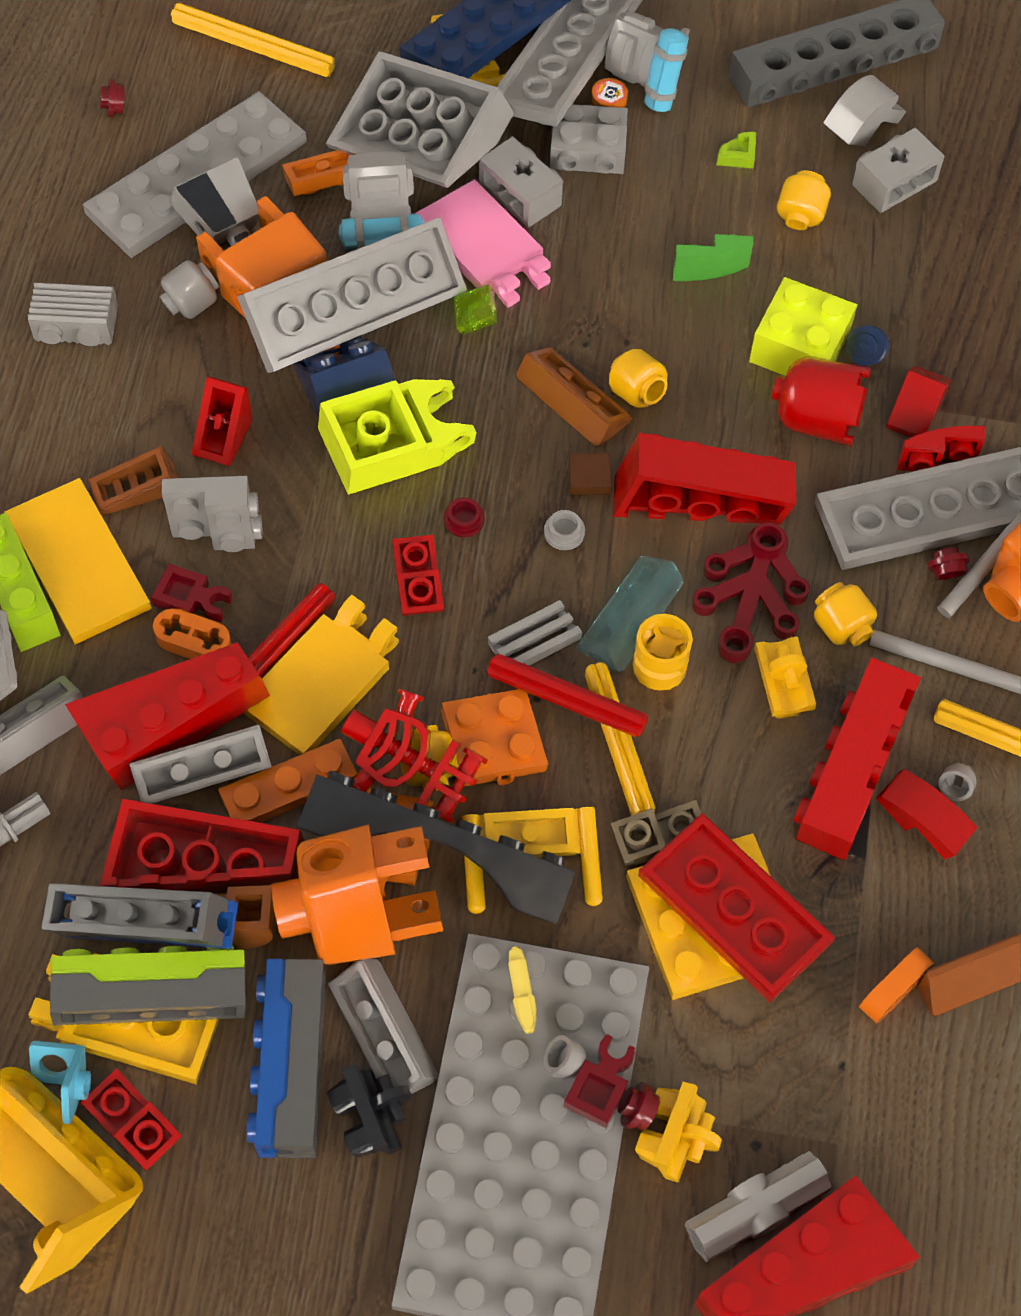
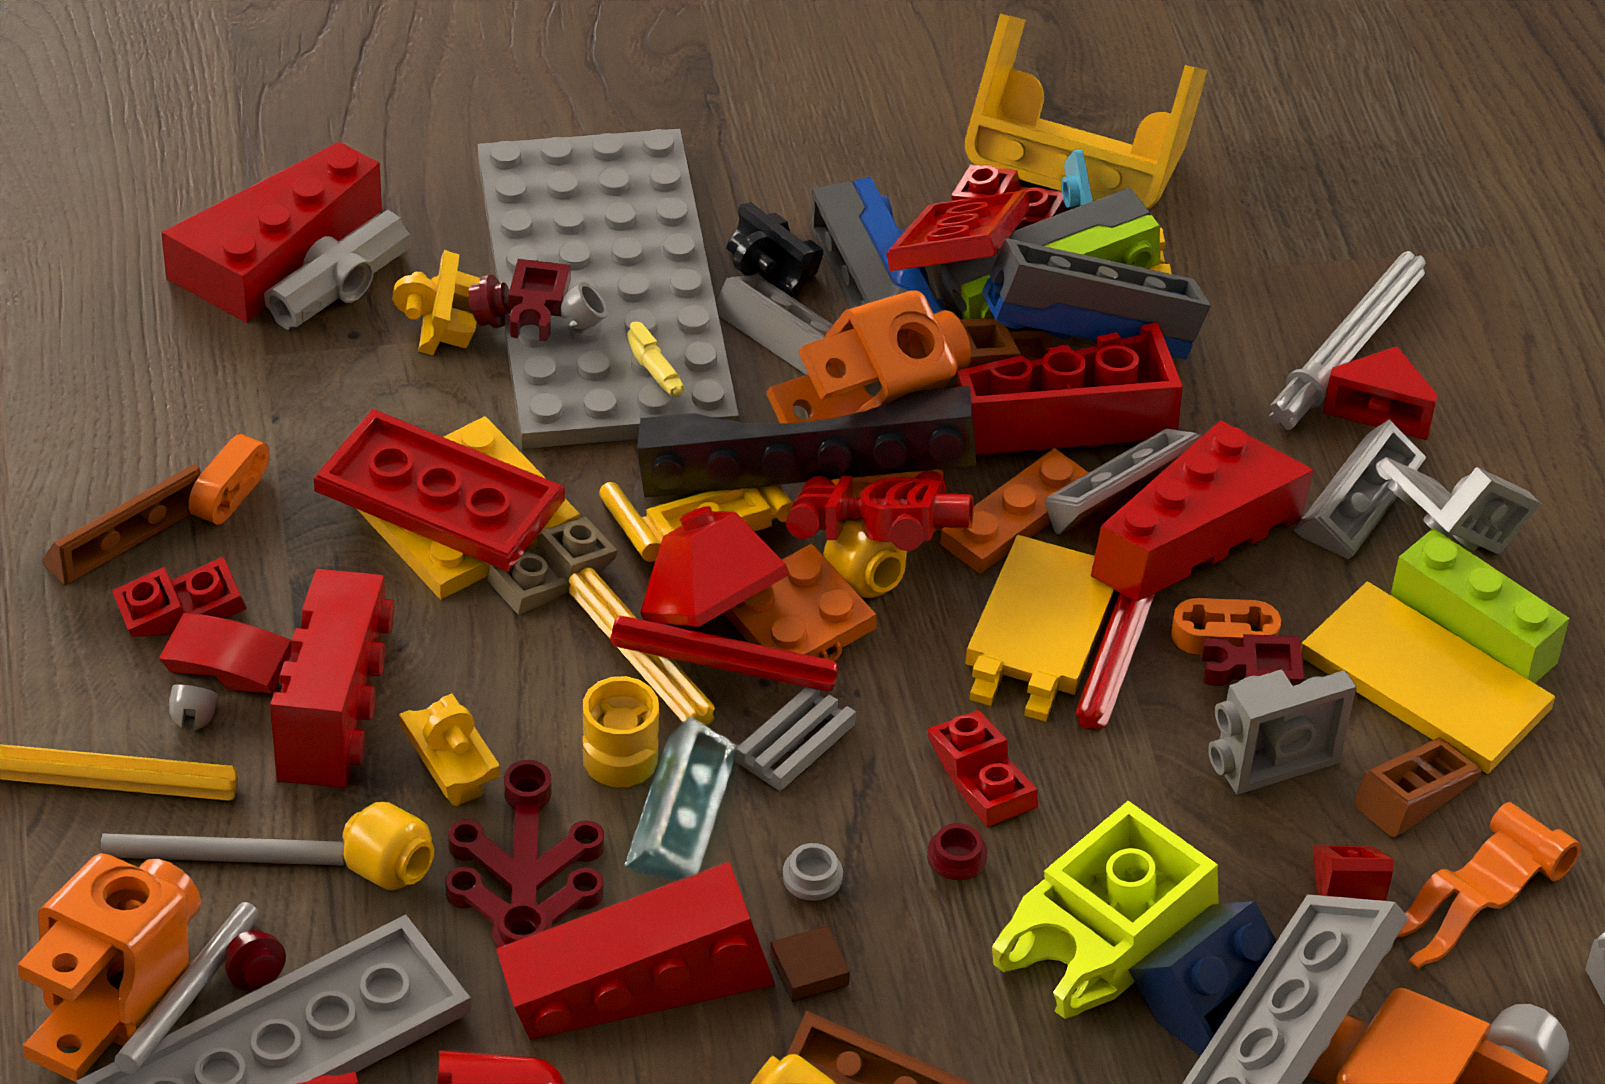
camera: 160 degrees right, 15 degrees down
(135, 410) = (1491, 878): none -> orange flag
(215, 1027) = (959, 230): none -> red tile
(555, 753) = (708, 569): none -> red slope
(953, 886) = (156, 603): none -> red slope

